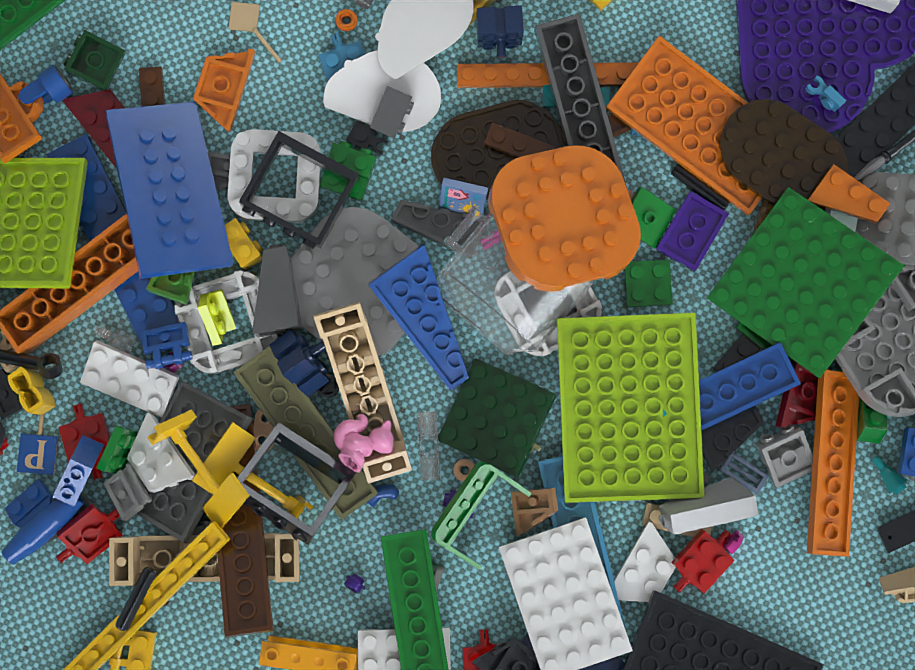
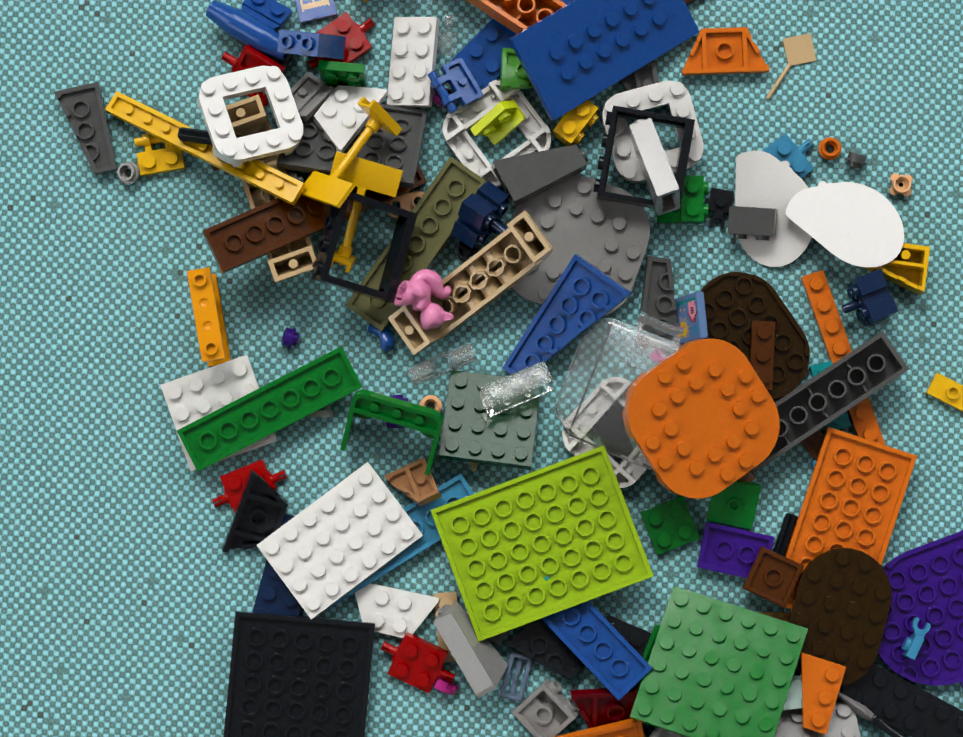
camera: 75 degrees right, 0 degrees up
(159, 553) = (258, 145): none -> white plate
(310, 181) = (655, 166): none -> slope
(476, 382) = (516, 388): none -> clear brick
(728, 204) = (772, 577): none -> reddish brown plate

